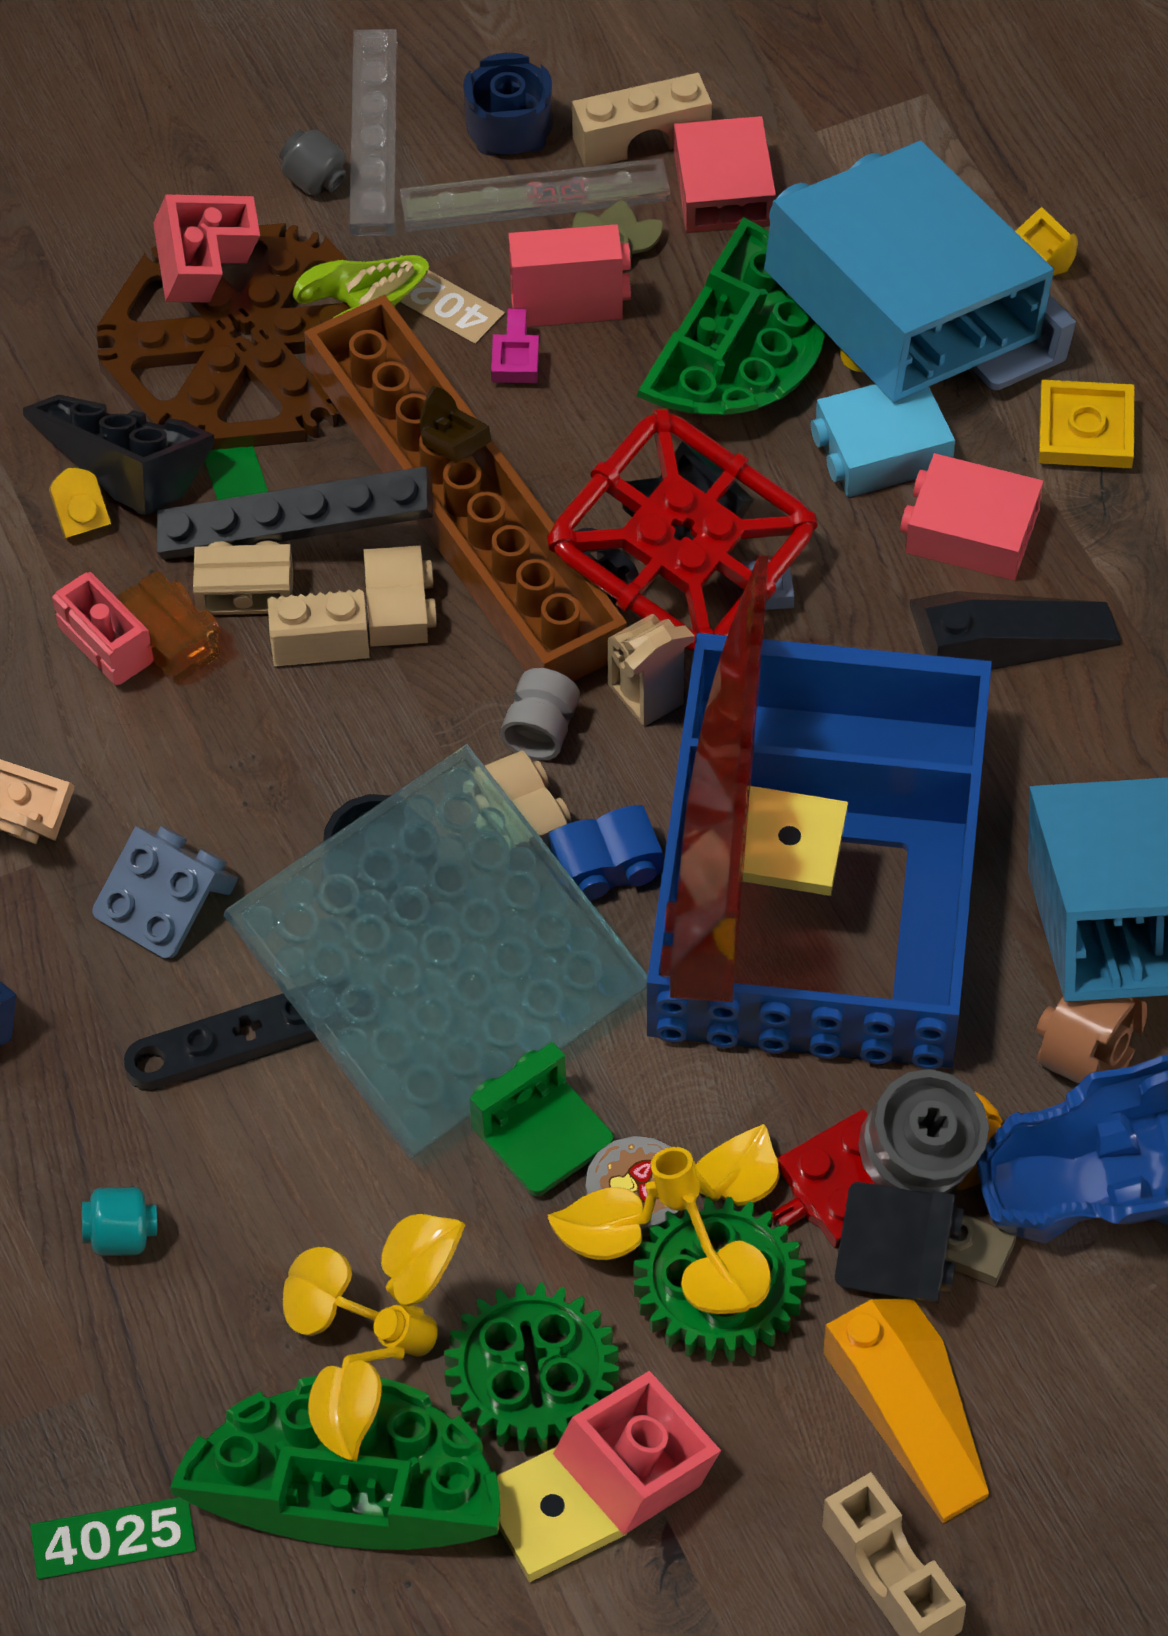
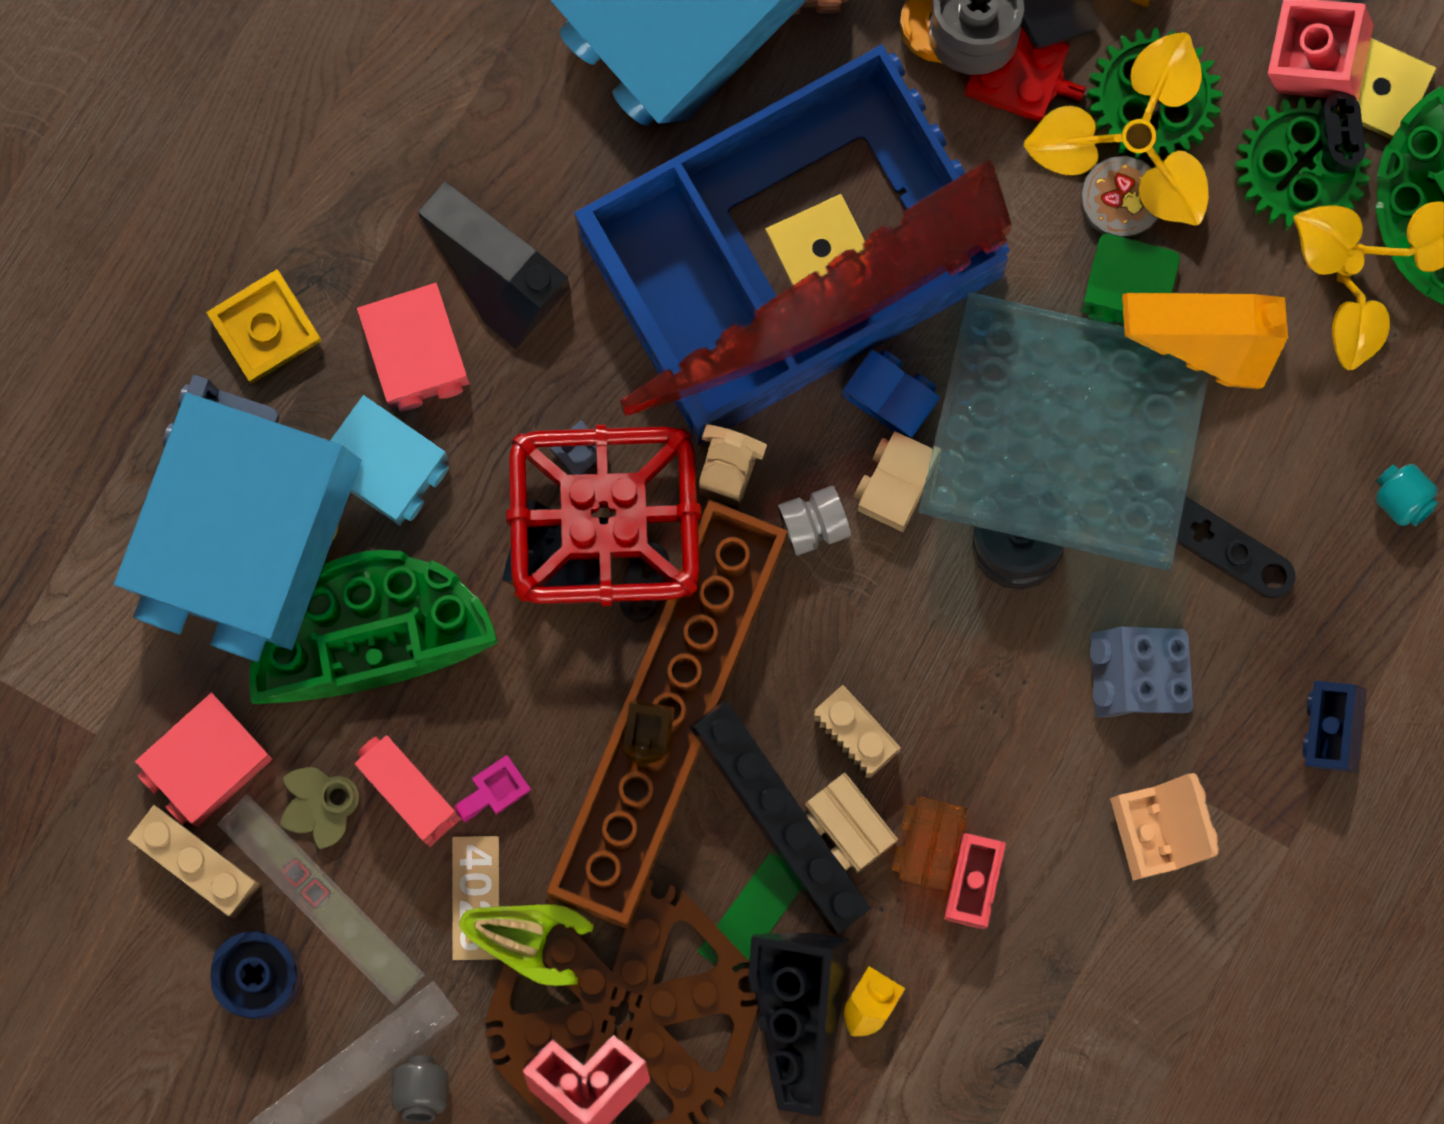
camera: 125 degrees left, 25 degrees up
(397, 595) = (783, 701): tan brick -> none
(425, 1139) = (1216, 333): none -> light orange wedge
(536, 1393) = (1333, 133): none -> black beam
(1049, 240) = (103, 469): yellow plate -> none

